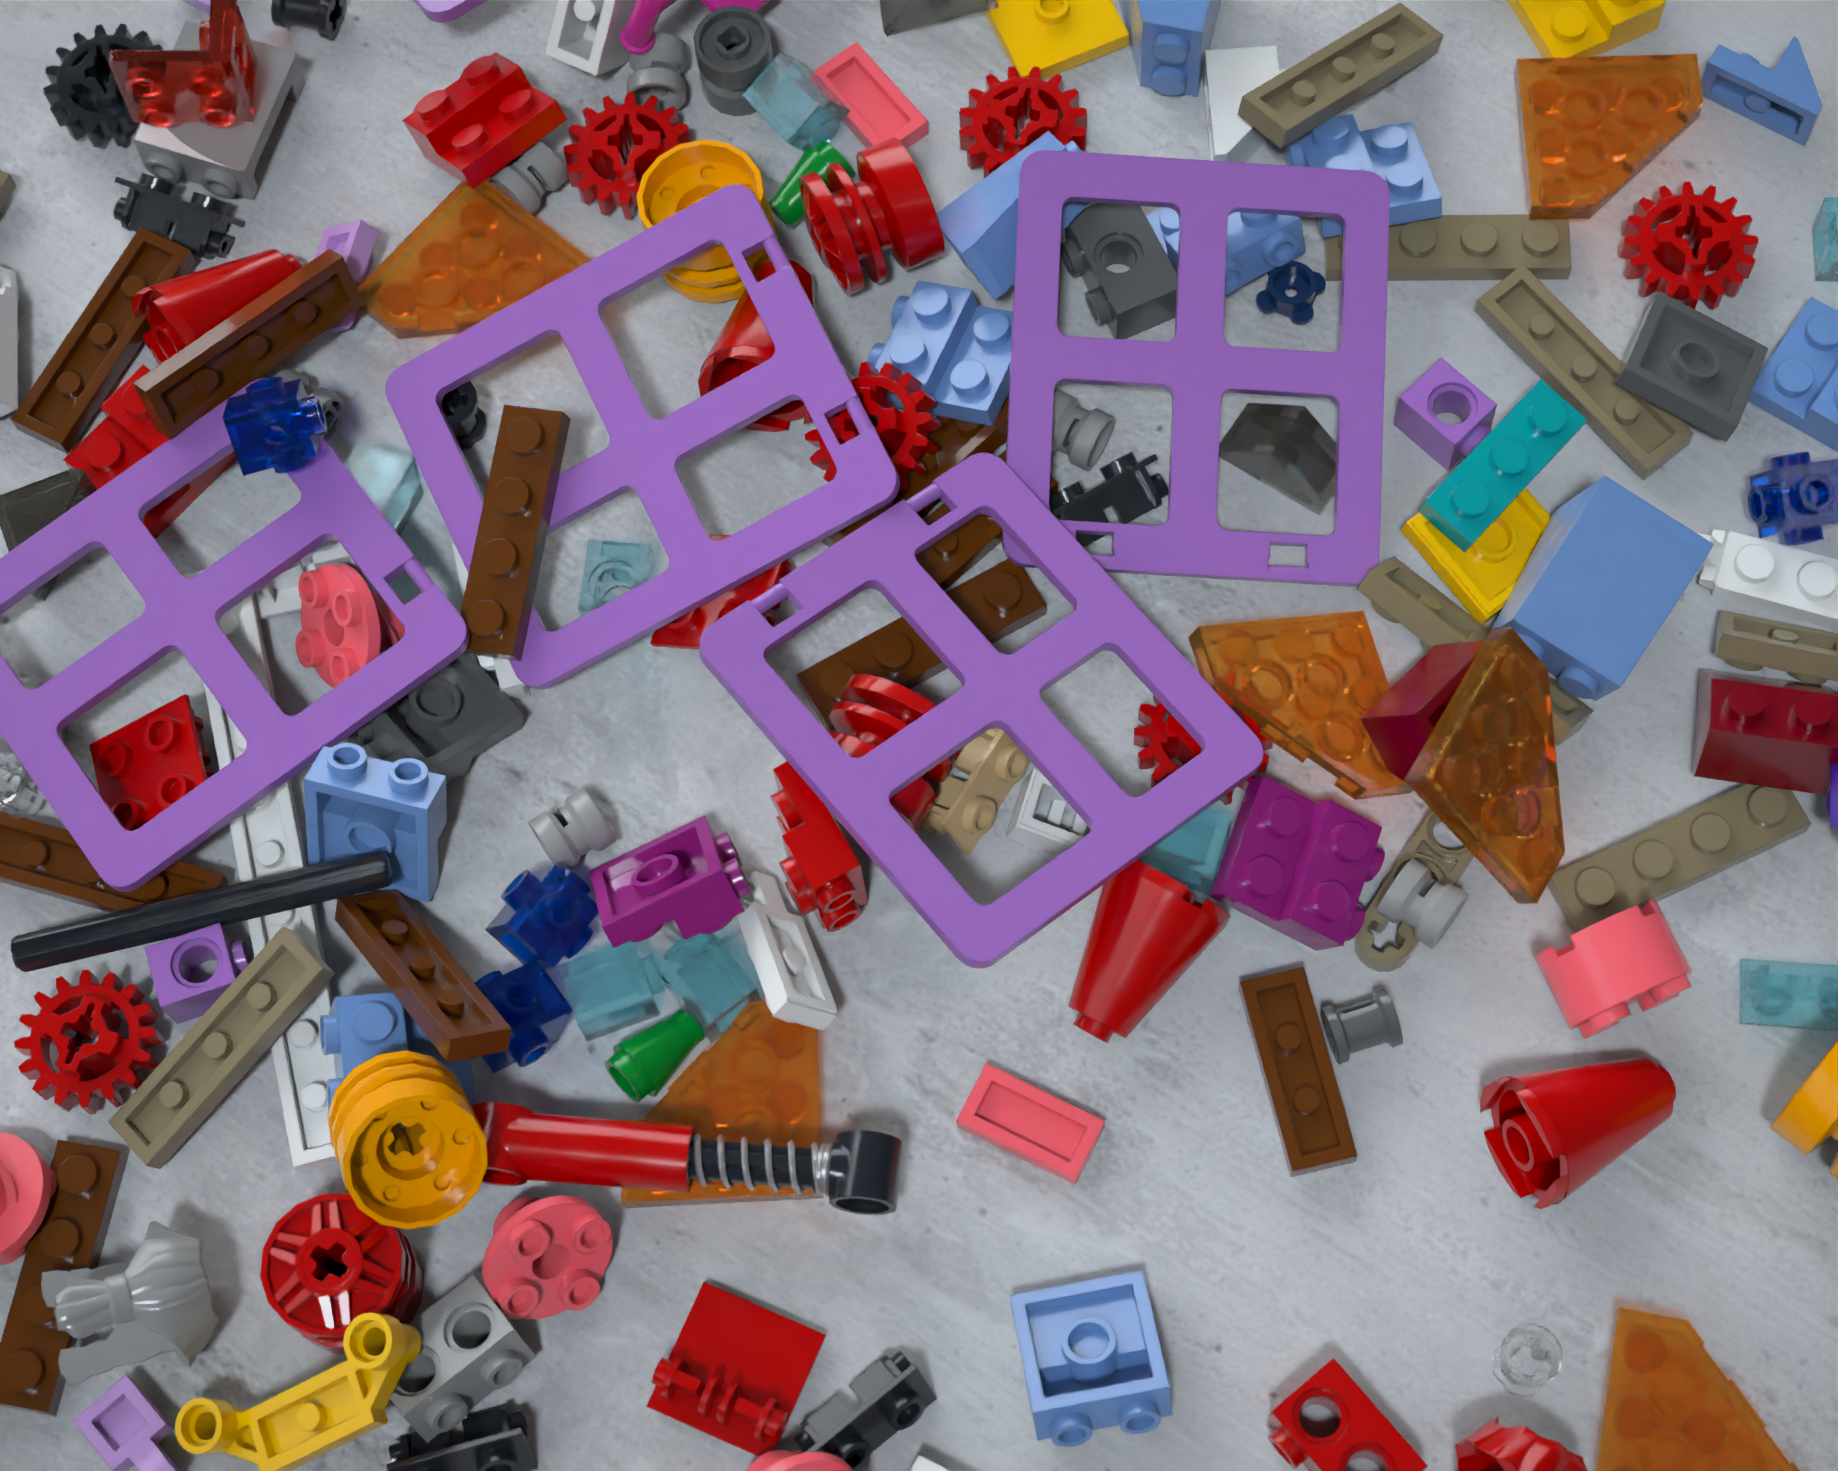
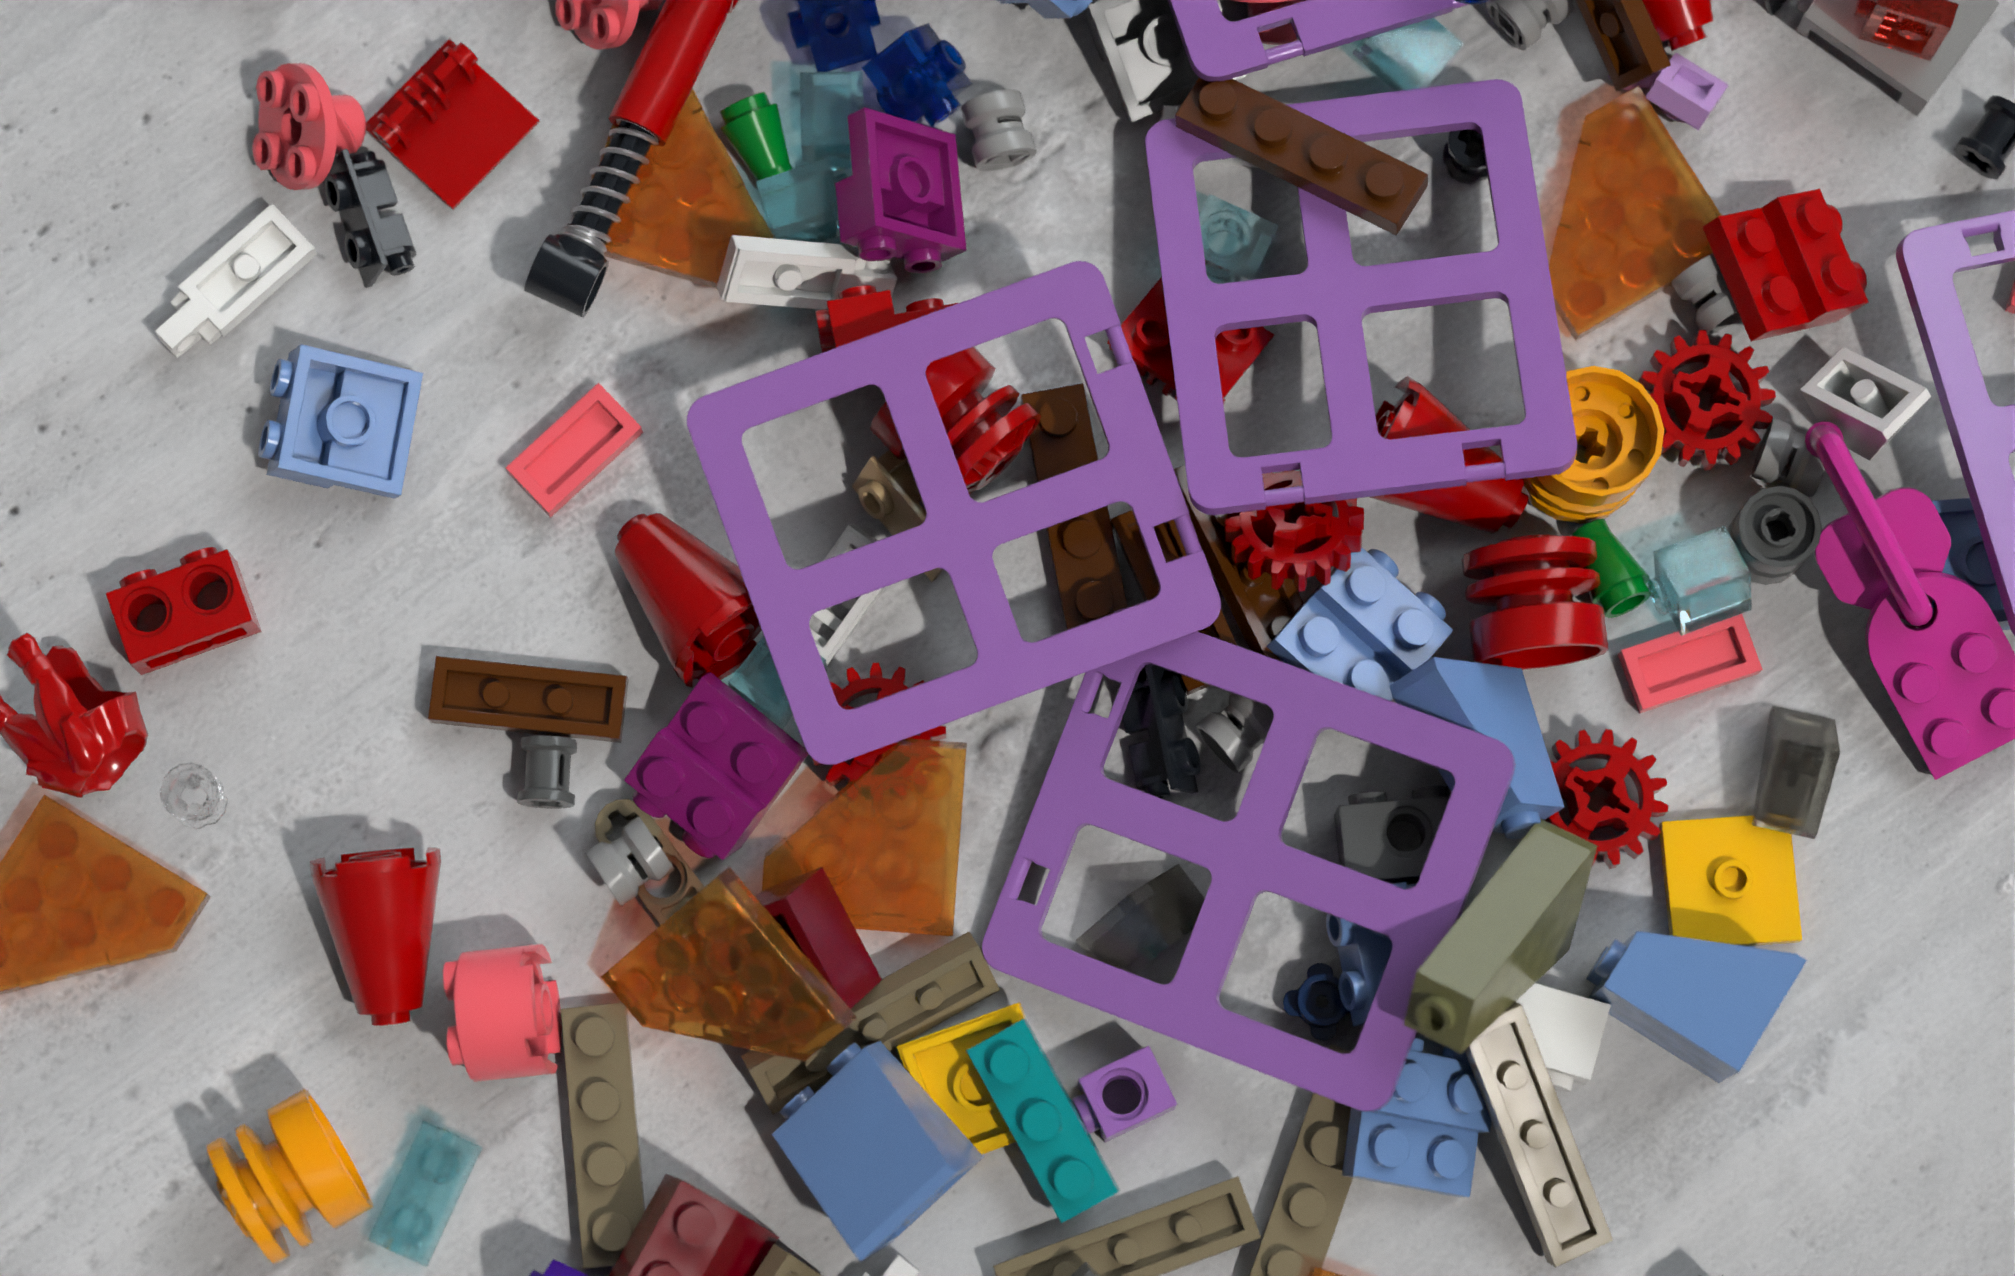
camera: 100 degrees right, 10 degrees up
(1194, 122) = (1503, 938): none -> olive slope

